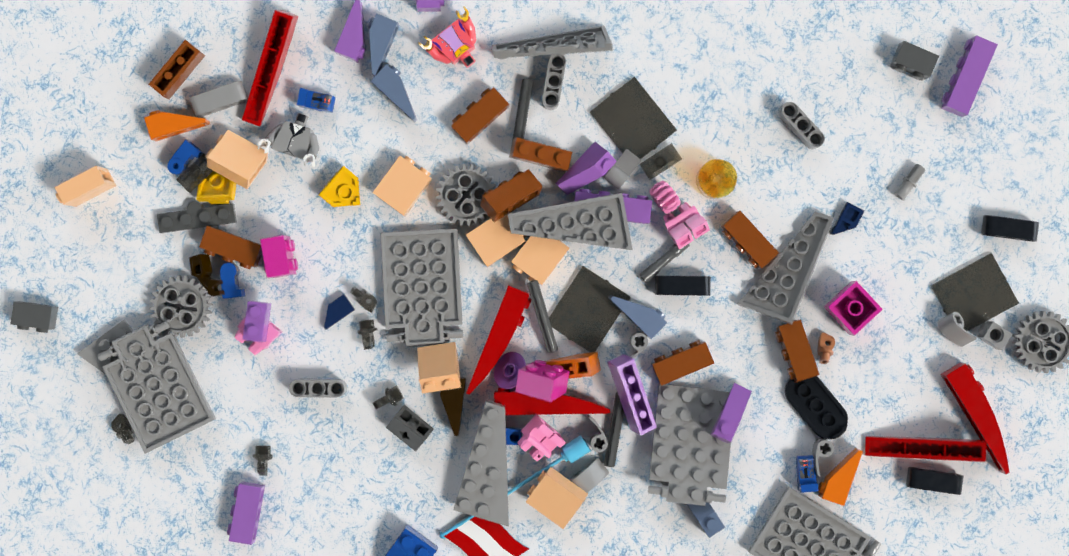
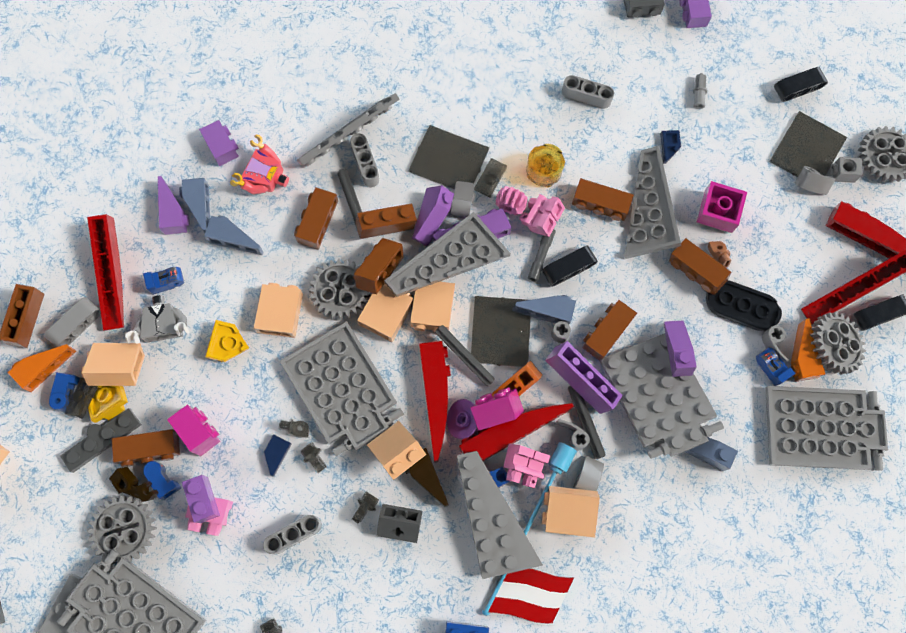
camera: 30 degrees left, 15 degrees down
(878, 490) = (838, 343): none -> light grey gear

